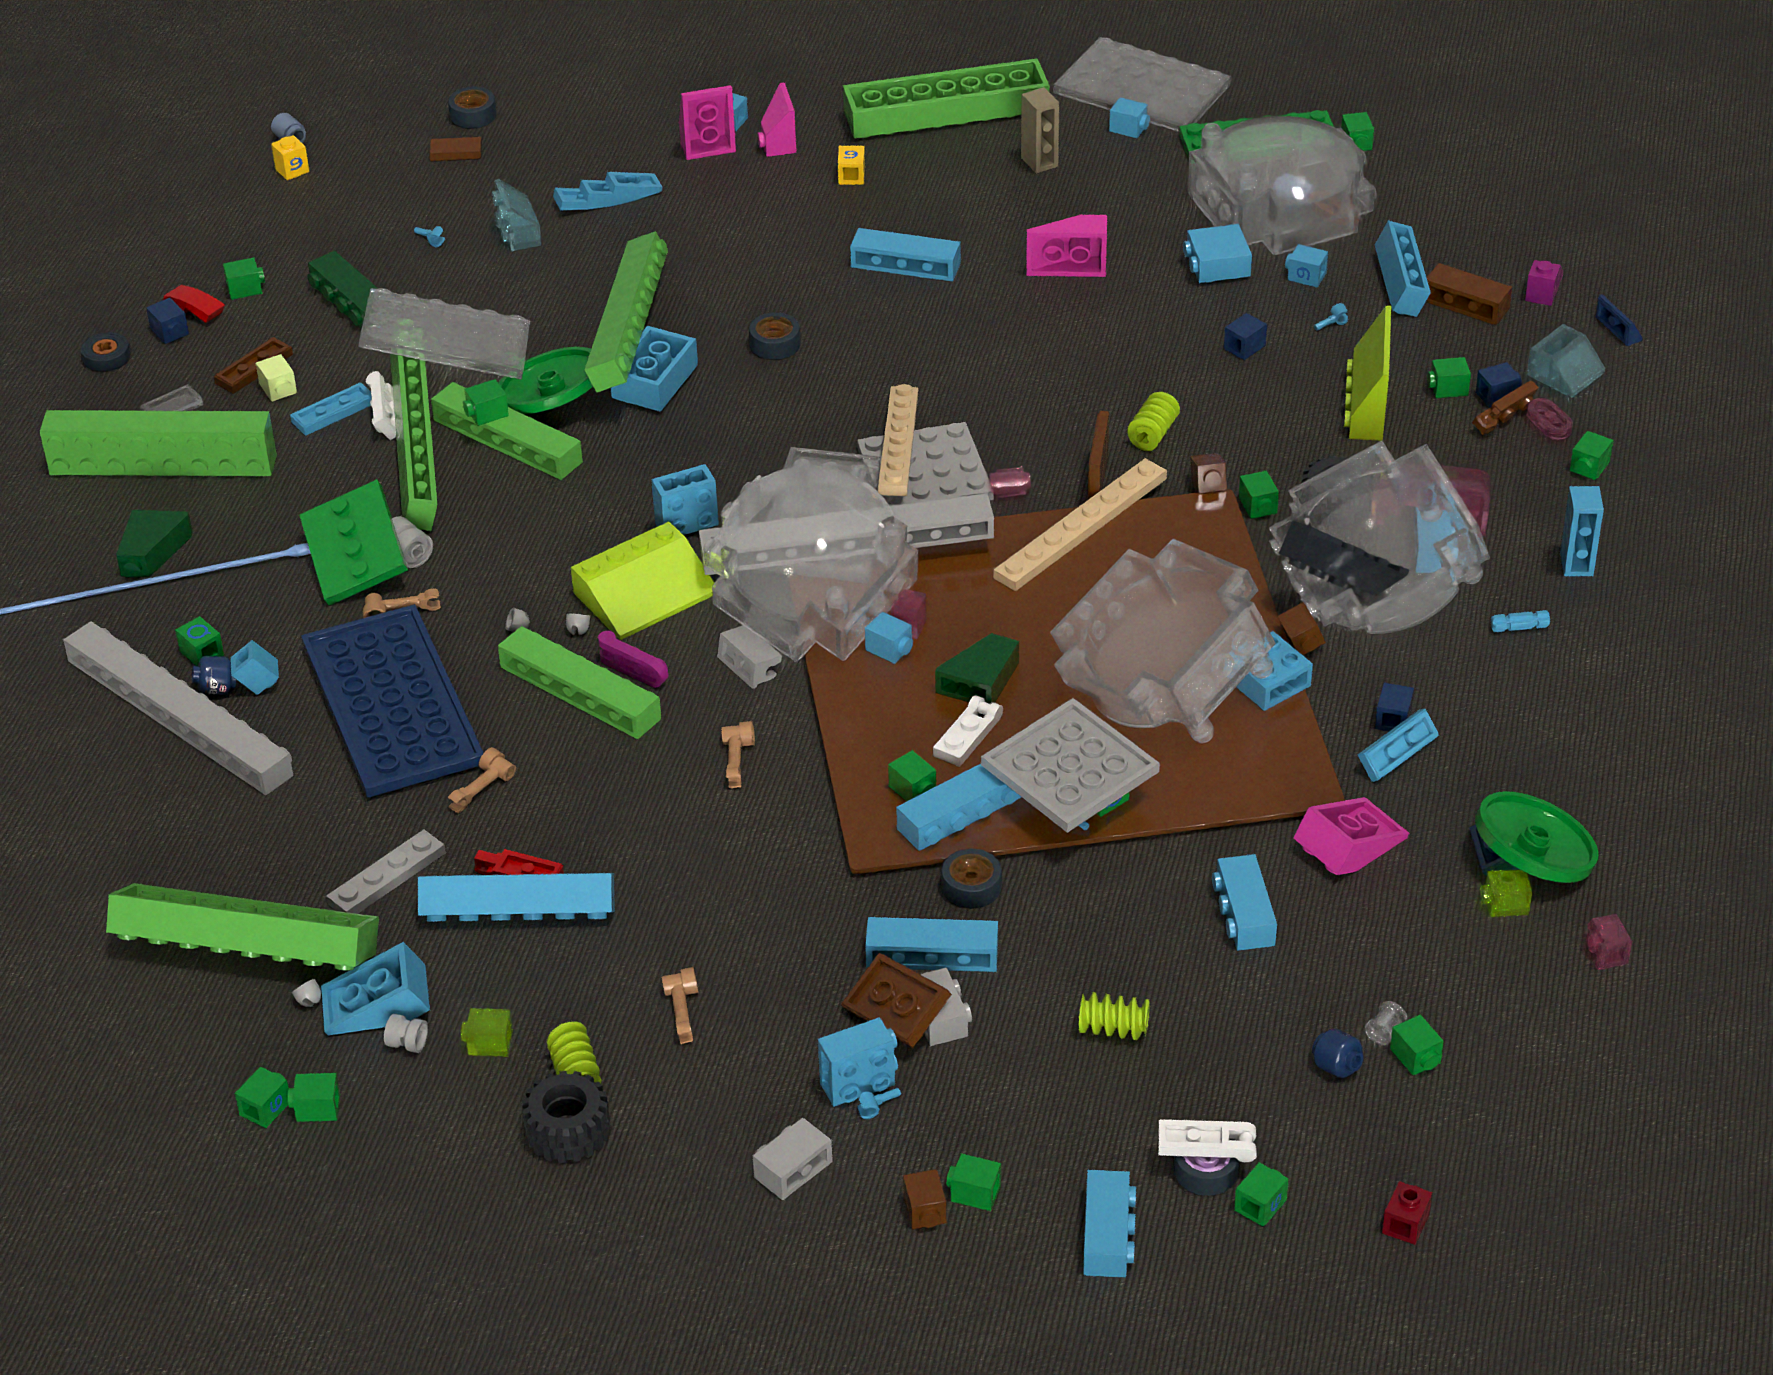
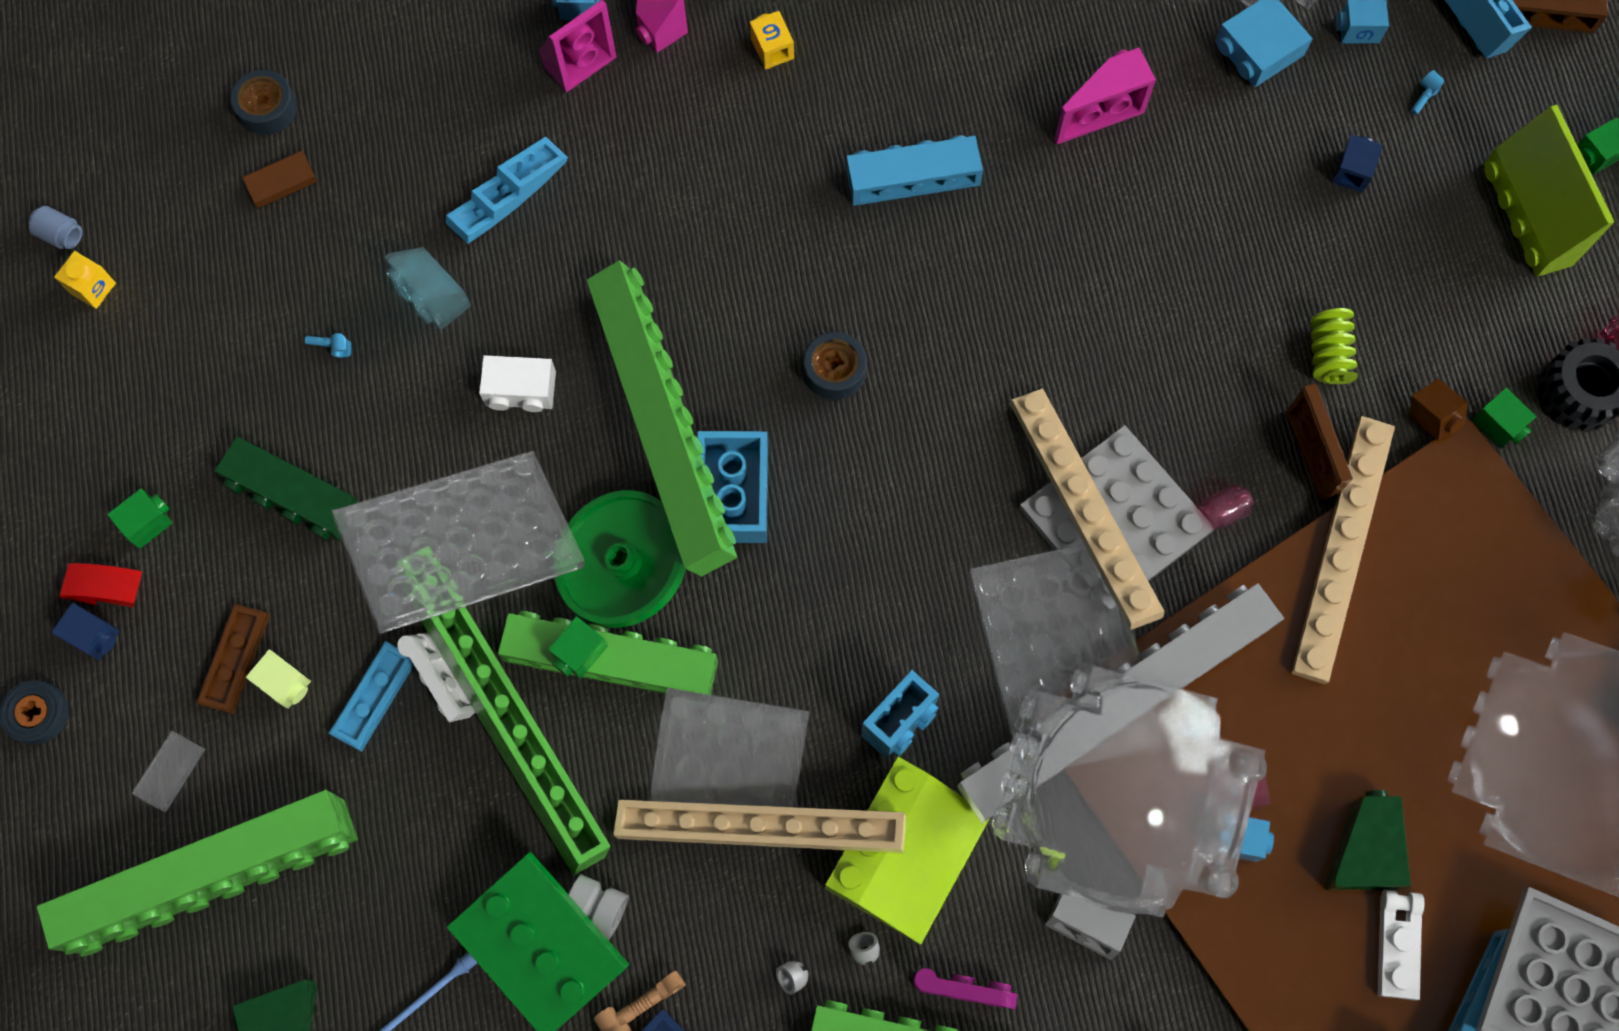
camera: 25 degrees left, 30 degrees up
(544, 283) = (517, 383): none -> white brick
(547, 526) = (761, 826): none -> tan plate
(556, 499) = (728, 751): none -> clear slope

